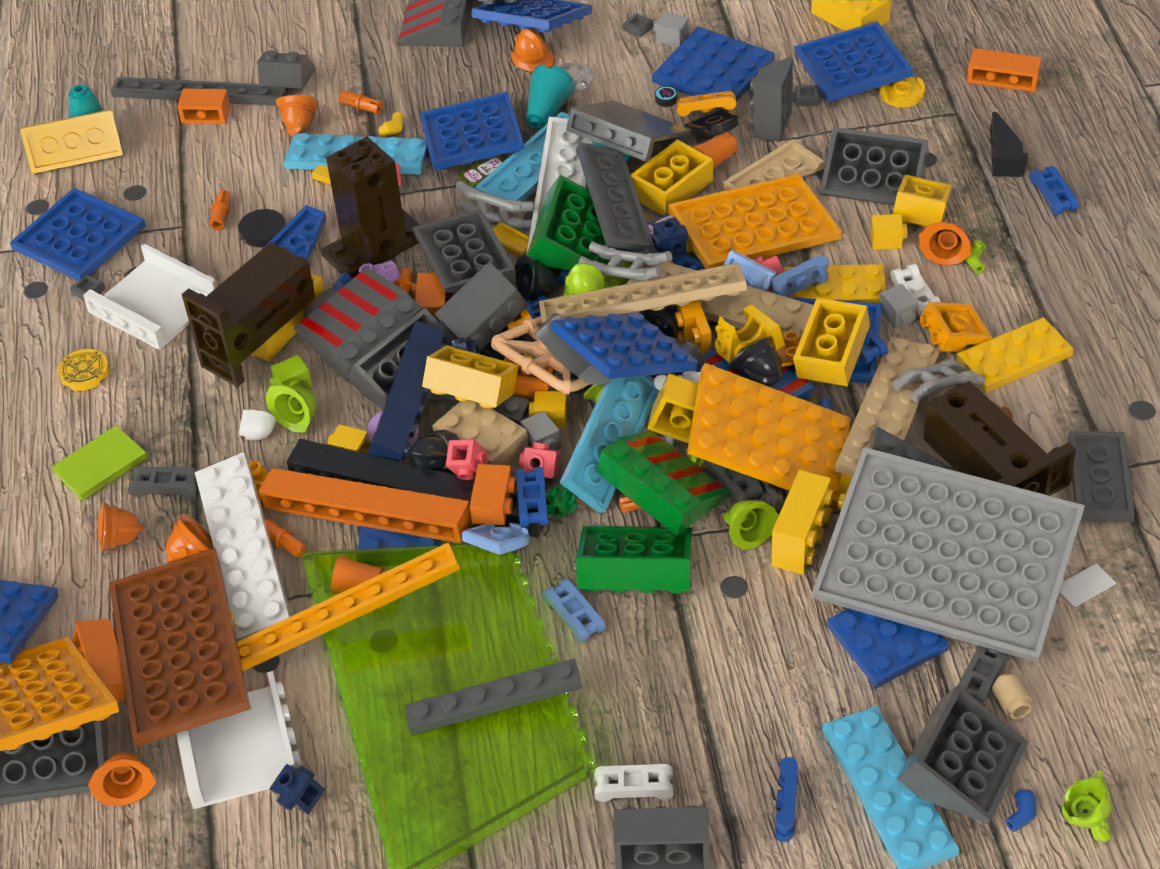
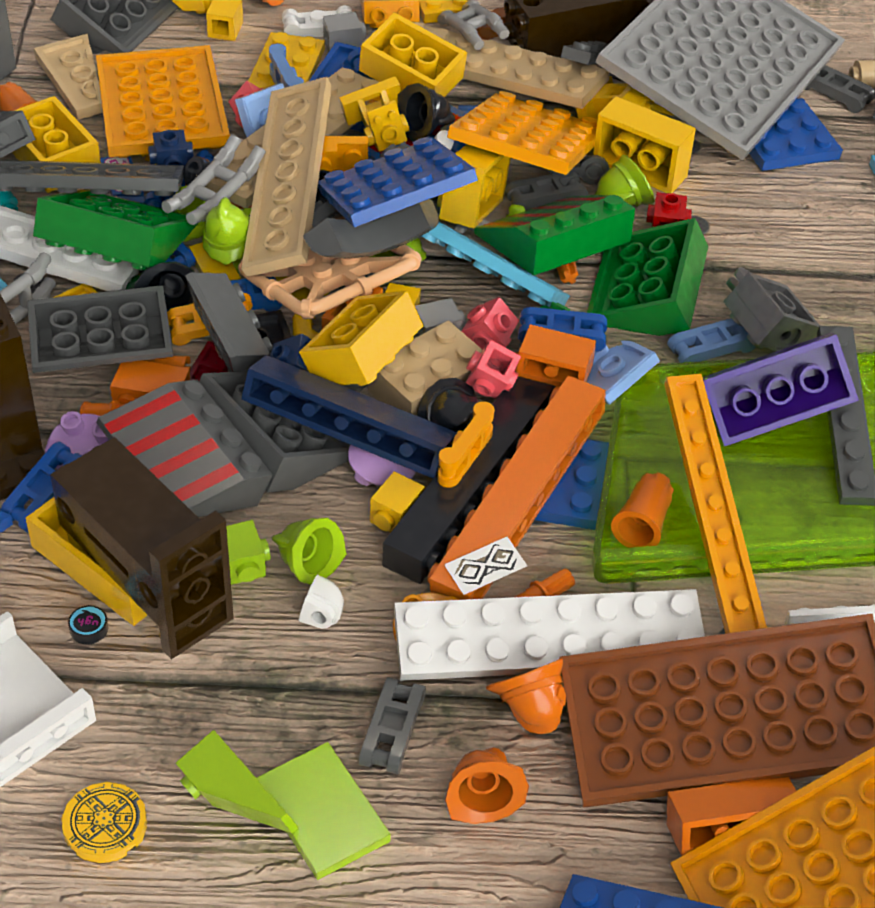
camera: 85 degrees left, 0 degrees up
(101, 413) = (229, 785): none -> lime slope
(283, 492) = (485, 565): none -> white sticker
(334, 269) = (37, 484): none -> blue plate
(388, 459) = (466, 446): none -> light orange plate
(496, 638) = (779, 389): none -> slope
(599, 630) = (768, 311): none -> flat silver brick
(716, 556) = (668, 209): none -> red brick

